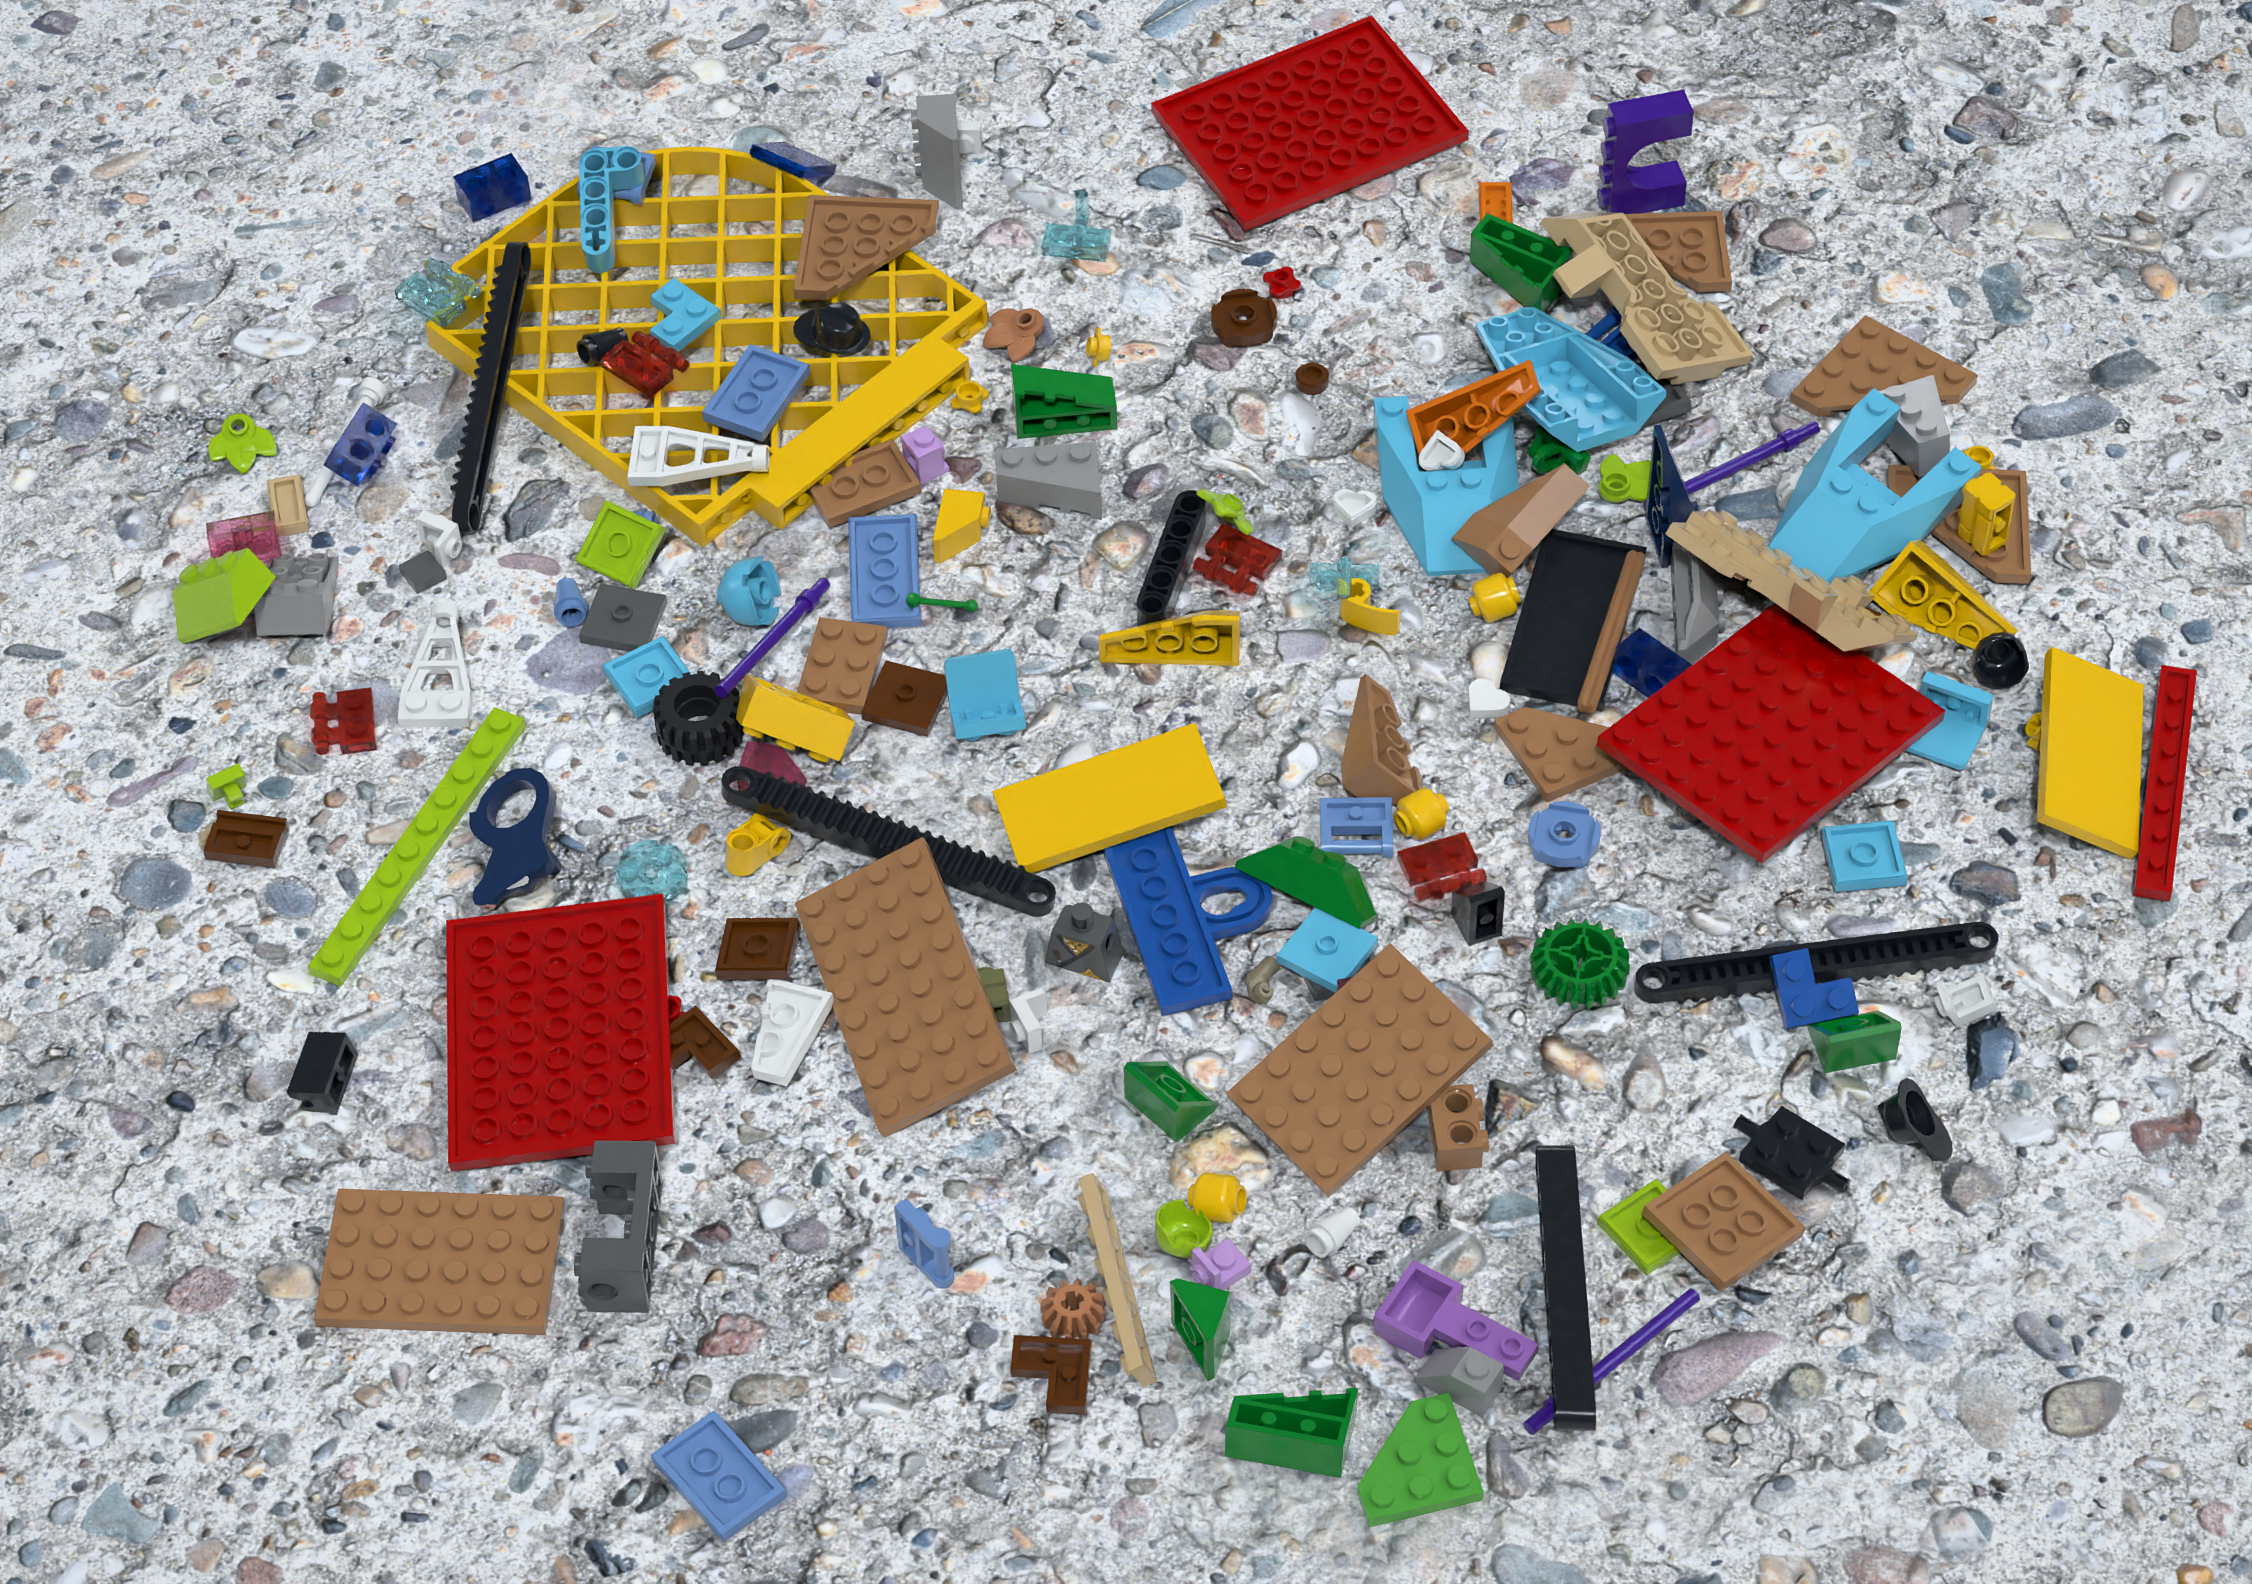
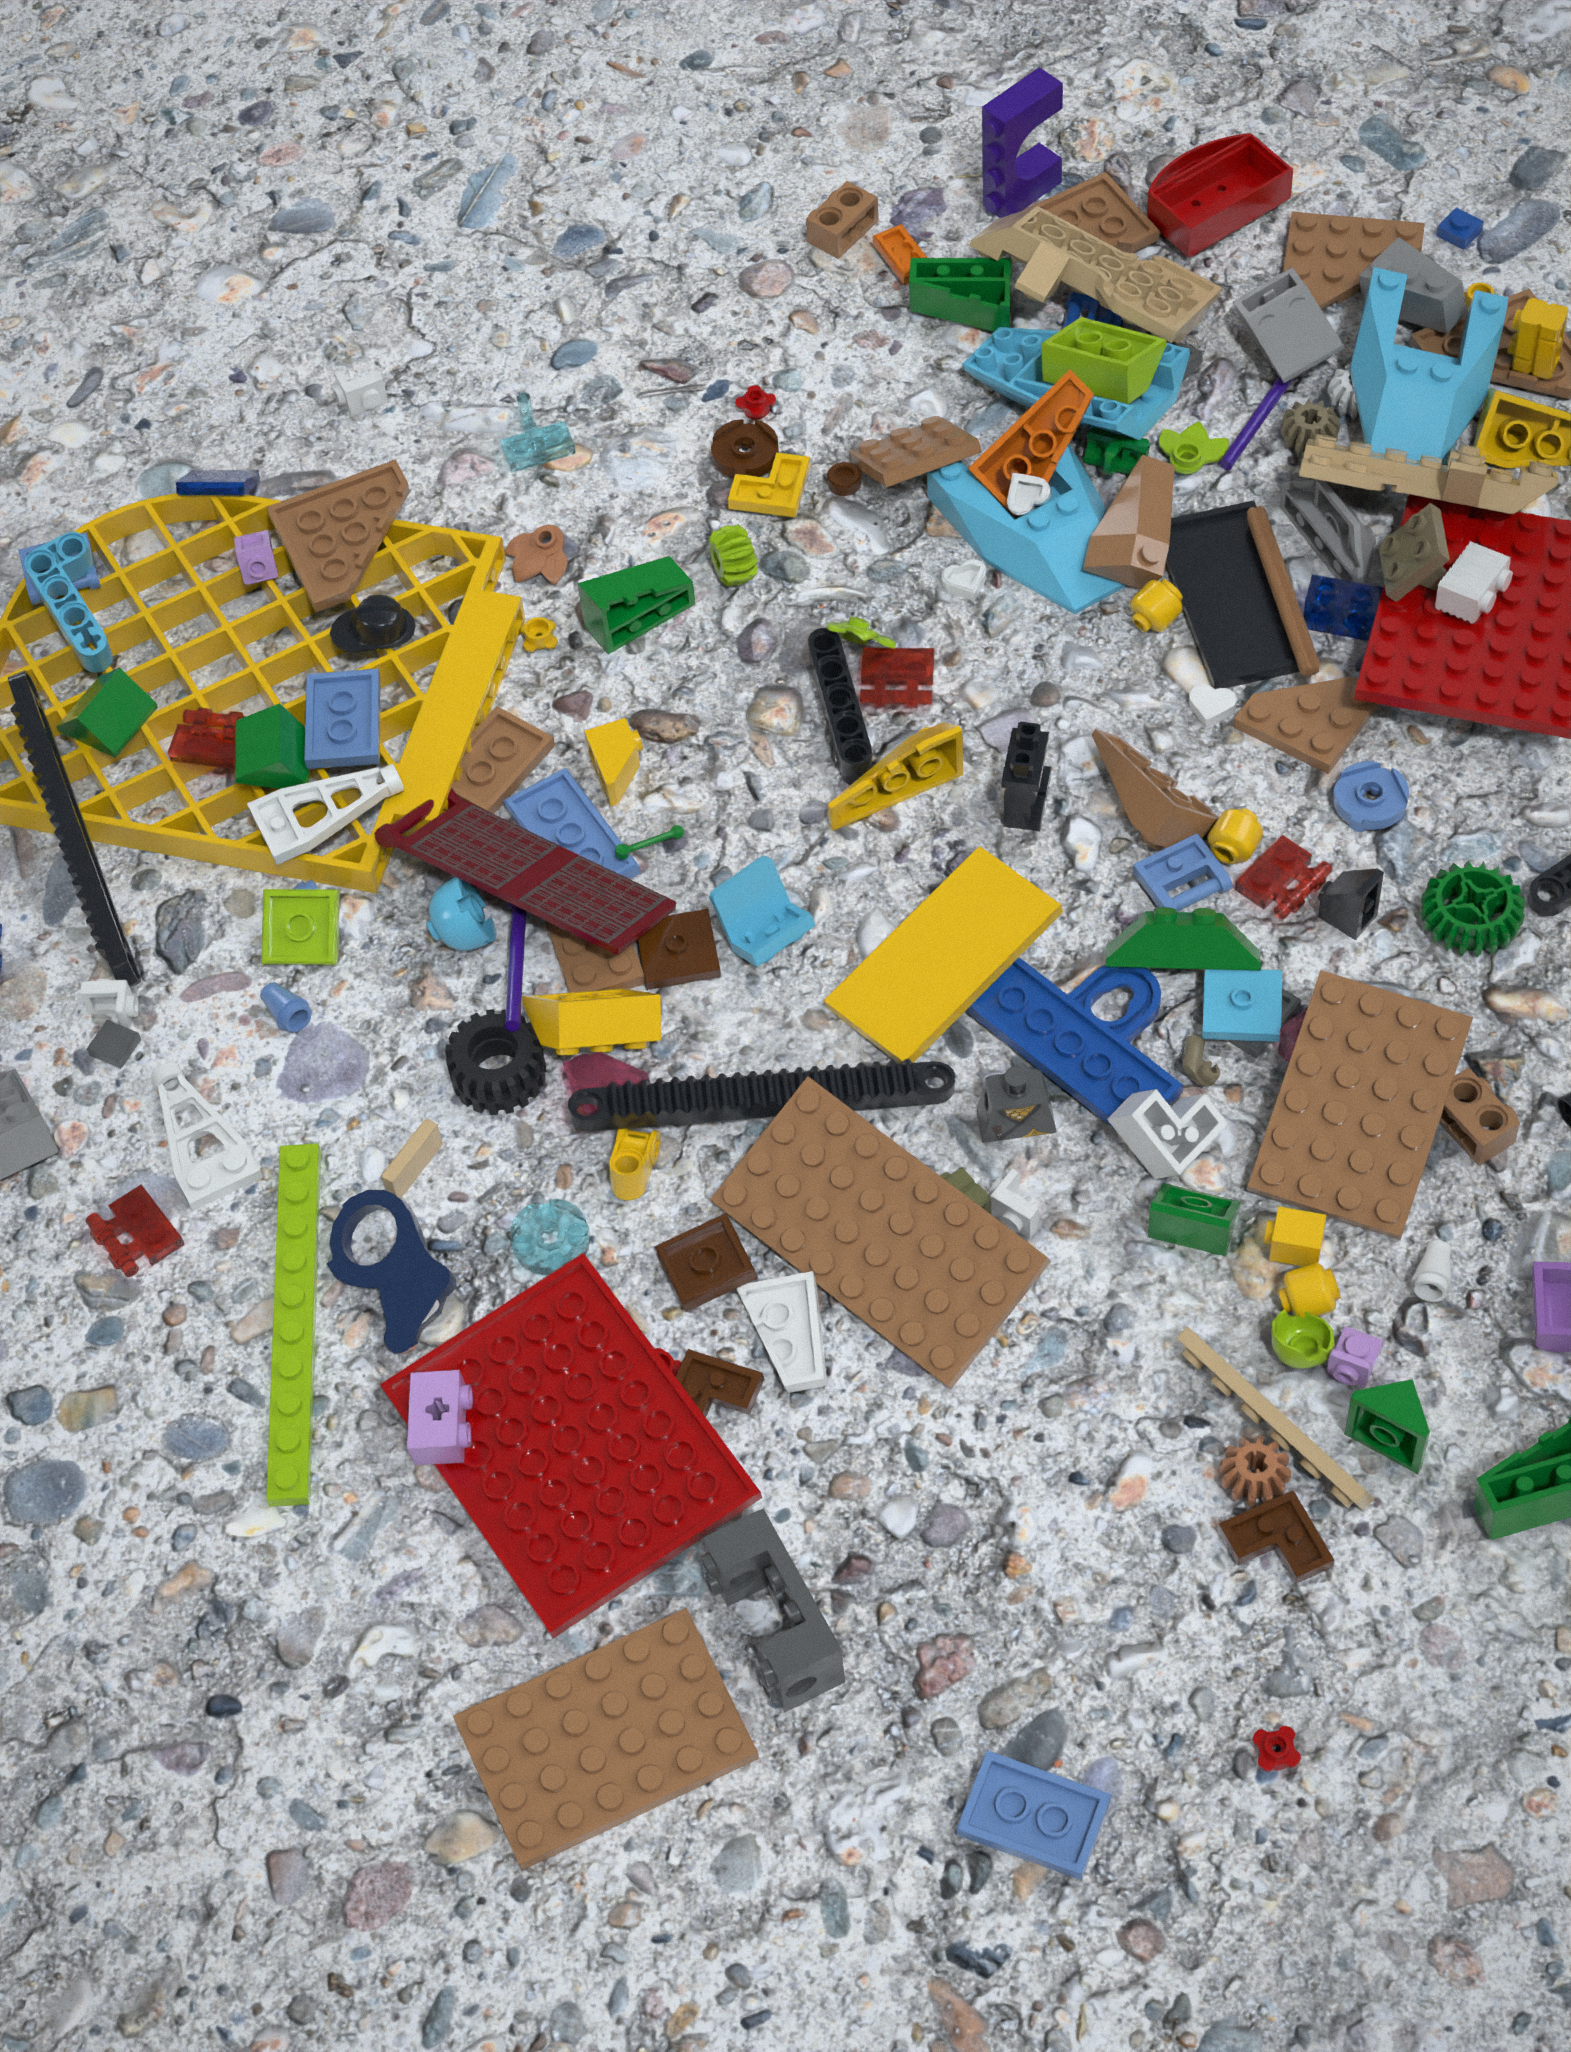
camera: 25 degrees left, 5 degrees up
(227, 785) = (61, 1354): lime tile -> none
(246, 838) = (114, 1399): reddish brown plate -> none
(323, 1071) = (356, 1602): black hinge -> none
(467, 962) = (438, 1417): none -> lavender brick
(579, 309) = (109, 713): none -> green slope
(585, 764) = (412, 1158): none -> tan tile
(596, 345) = (154, 742): black cone -> none
(622, 618) = (347, 998): dark grey plate -> none
(643, 672) = (412, 1044): medium azure plate -> none
(680, 391) = (270, 749): none -> green slope
(686, 314) = (220, 672): medium azure plate -> none
(774, 231) = (255, 557): none -> lavender bracket
(822, 581) = (530, 872): none -> dark red flag
(924, 454) = (537, 699): lavender brick -> none
(924, 1244) = (1064, 1476): medium blue plate -> none
(938, 147) = (362, 410): light grey slope -> none
(939, 1533) = (1272, 1760): none -> red plate
(1050, 476) = (674, 674): light grey wedge -> none
(1098, 347) = (630, 534): yellow plate -> none
(1166, 400) = (733, 555): none -> lime gear
(1180, 1023) = (1167, 1136): none -> white brick
(1235, 1149) = (1295, 1236): none -> yellow brick
(1248, 366) = (772, 495): none -> yellow plate
(1275, 687) = (1026, 777): none -> black hips
(1309, 122) = (676, 247): red plate -> none
(1338, 576) = (1015, 642): clear light blue plate -> none
(1361, 614) = (1037, 674): yellow panel -> none
(1377, 378) = (914, 451): none -> medium nougat plate
(1463, 157) = (842, 219): none -> medium nougat brick
(1584, 367) = (1104, 357): none -> lime slope
(1666, 496) = (1255, 446): dark blue wedge -> none
(1725, 645) = (1414, 554): none -> dark tan plate
(1743, 502) = (1305, 422): none -> dark tan gear
(1762, 691) = (1473, 582): none -> white brick
(1777, 408) = (1287, 325): none -> light grey slope
(1796, 249) = (1241, 167): none -> red piece
(2009, 393) = (1460, 228): none -> blue plate

